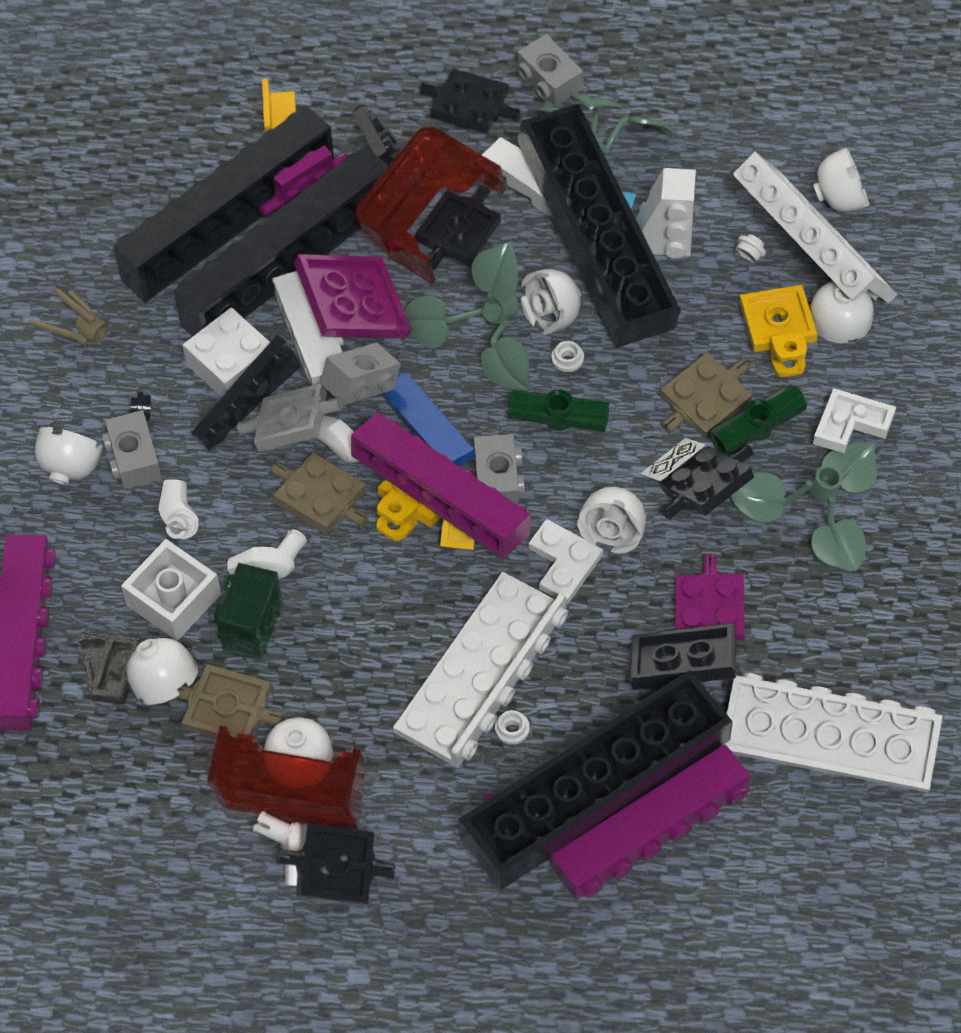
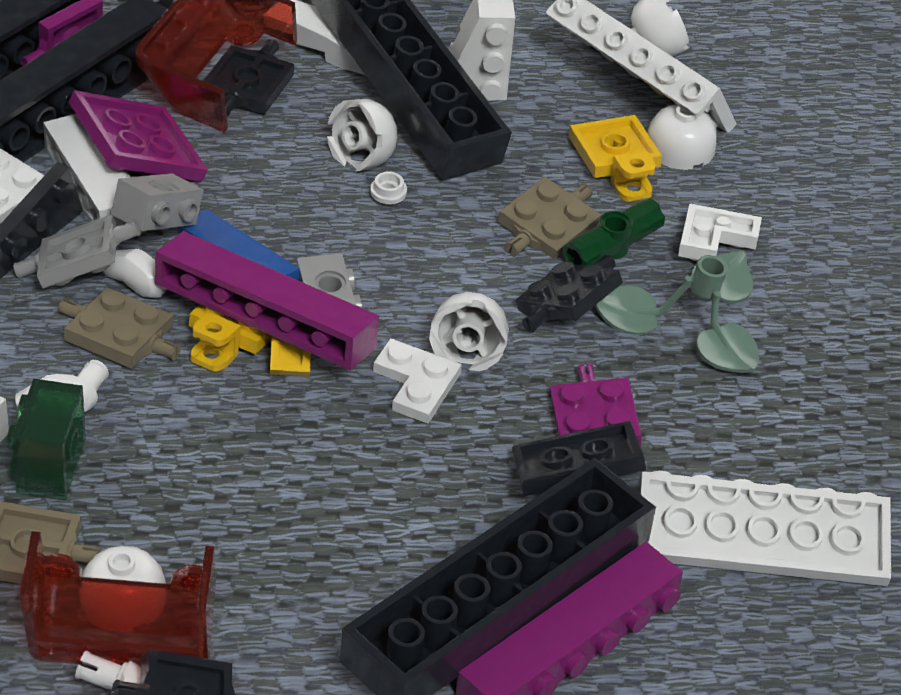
camera: 15 degrees left, 15 degrees down
(481, 670) = (336, 494): white bracket -> none
(497, 274) = (324, 190): sand green plant -> none
(512, 718) = (383, 538): white plate -> none
(541, 407) = (388, 235): dark green piece -> none
(673, 459) = (524, 277): white sticker -> none
(750, 248) = (572, 87): white plate -> none

